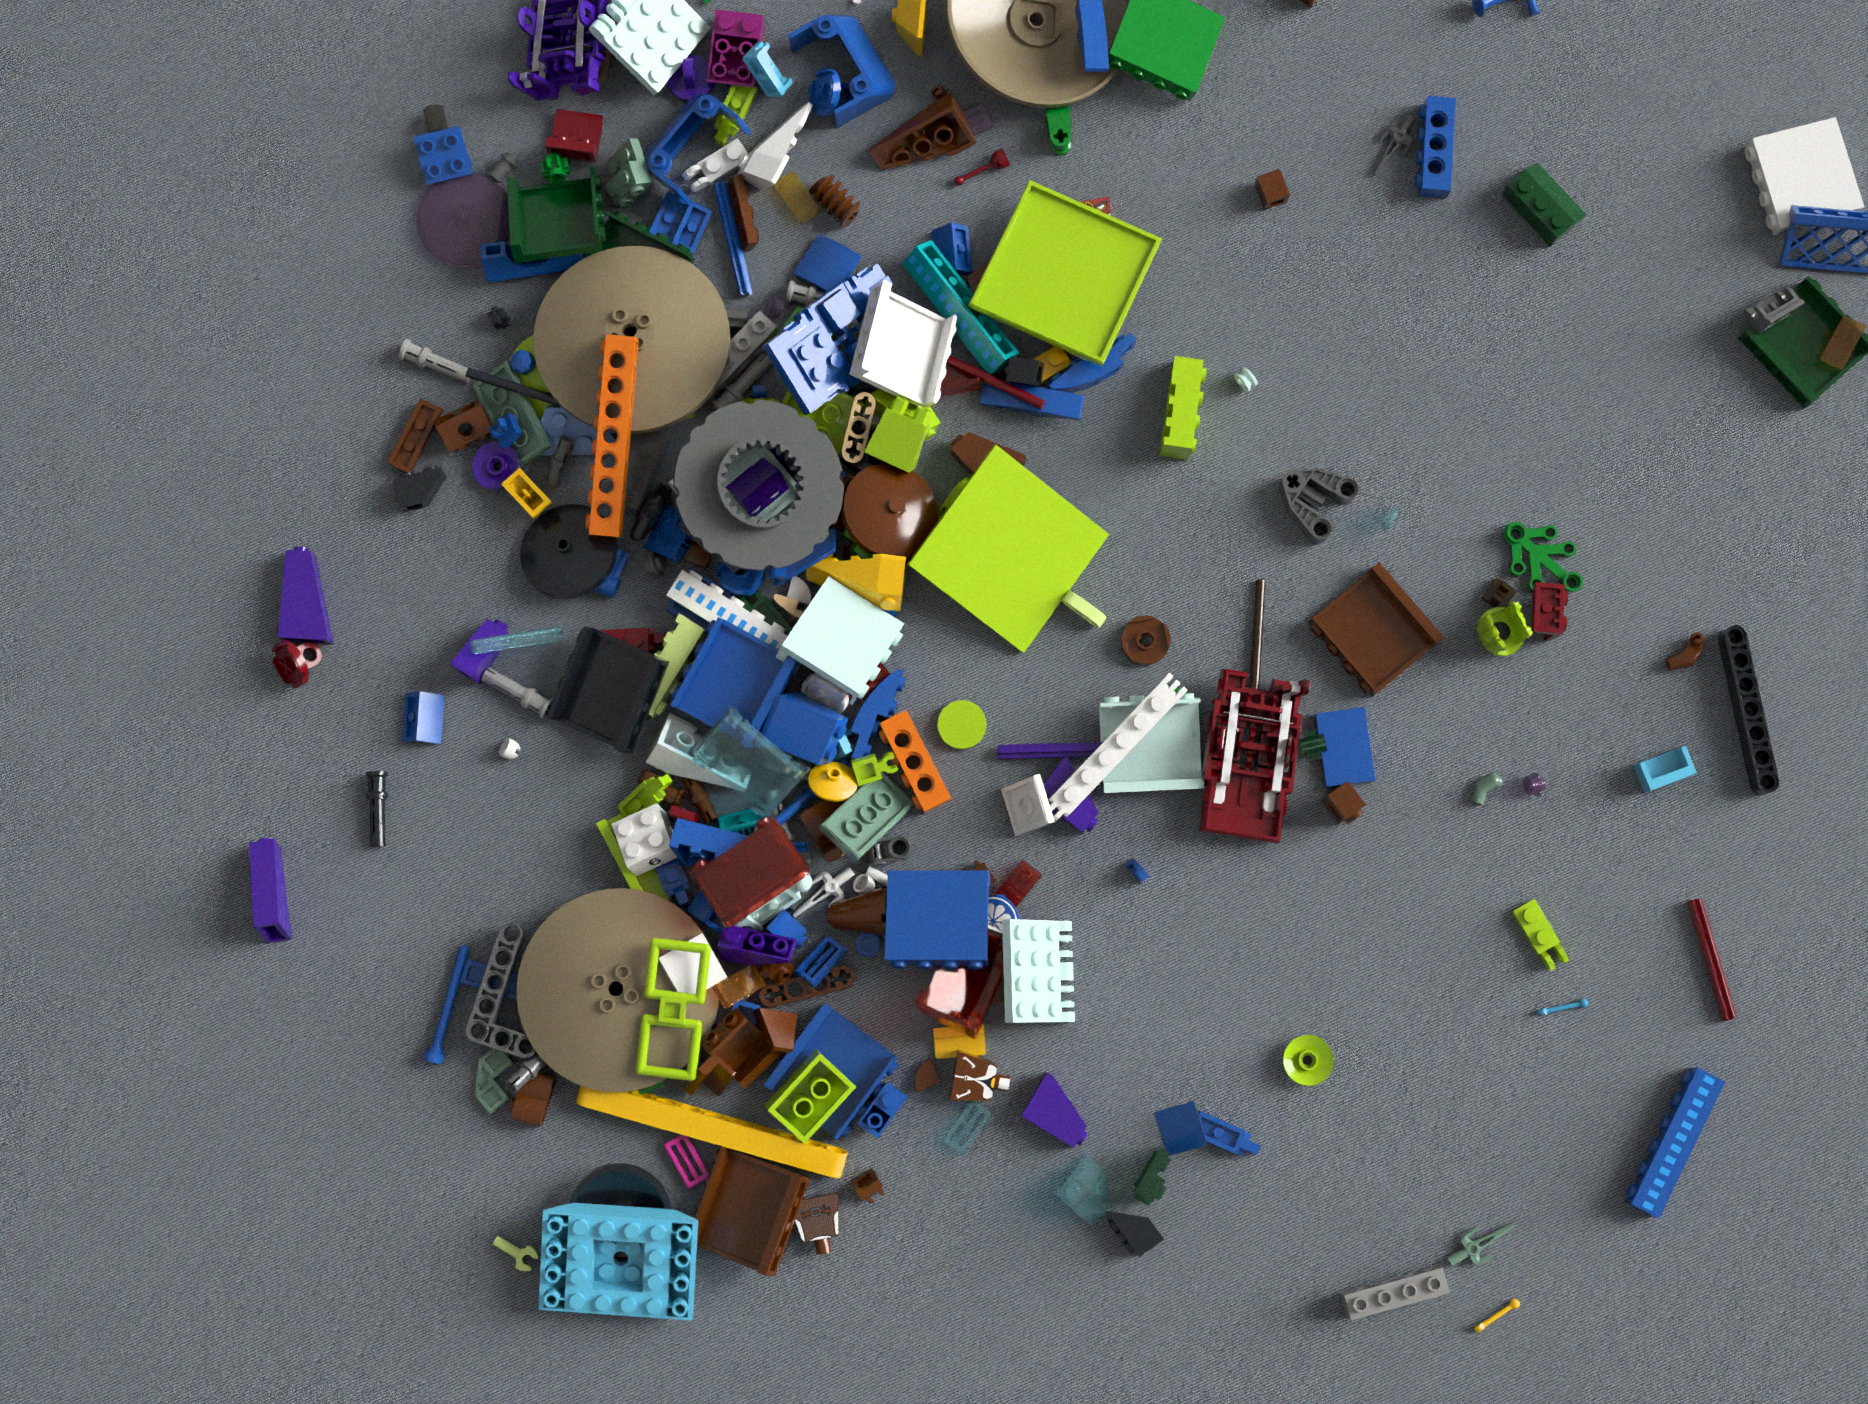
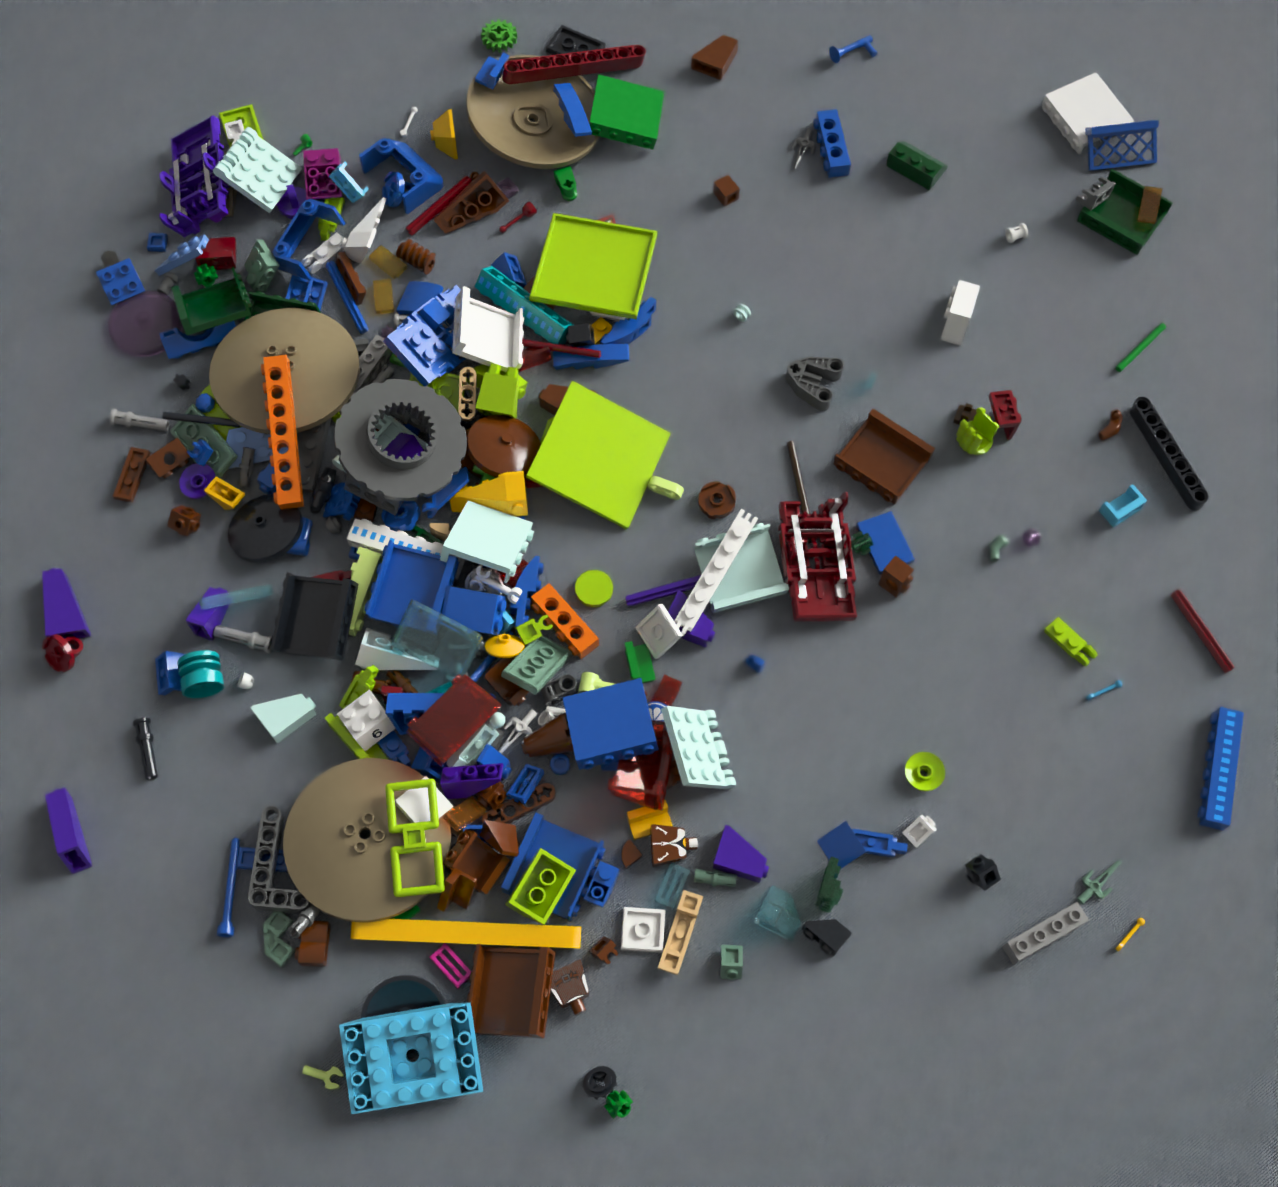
camera: 15 degrees left, 15 degrees down
(418, 489) = (141, 509): black slope -> none
(456, 732) = (200, 674): none -> teal wheel
(470, 518) = (184, 520): none -> reddish brown brick
(500, 99) = (157, 242): none -> blue tile
(532, 133) = (185, 253): none -> medium blue wing
(548, 805) = (284, 715): none -> light aqua slope
(582, 483) = (265, 480): none -> blue brick
(781, 247) = (383, 296): none -> clear yellow tile
(799, 591) = (446, 517): white tile -> none
(825, 690) = (482, 578): none -> white bar
(831, 1328) = (600, 1074): none -> black gear
(843, 1368) = (618, 1104): none -> green gear
(881, 125) = (437, 206): none -> dark red axle
(920, 1171) = (643, 930): none -> white tile
(931, 854) = (591, 681): none -> yellowish green pin
(962, 1187) = (680, 932): none -> tan slope
(995, 837) = (639, 662): none -> green panel
(1014, 1235) = (731, 962): none -> sand green bracket
(1020, 1130) = (715, 878): none -> sand green pin
(1182, 407) = (701, 340): lime wedge -> none
(1281, 1131) = (920, 830): none -> white bracket
(1341, 1202) = (982, 872): none -> black brick
(1536, 444) = (959, 312): none -> white wedge
(1539, 554) = (984, 383): green plant -> none
(1648, 341) = (1016, 233): none -> white bush
(1763, 547) = (1134, 353): none -> green bar

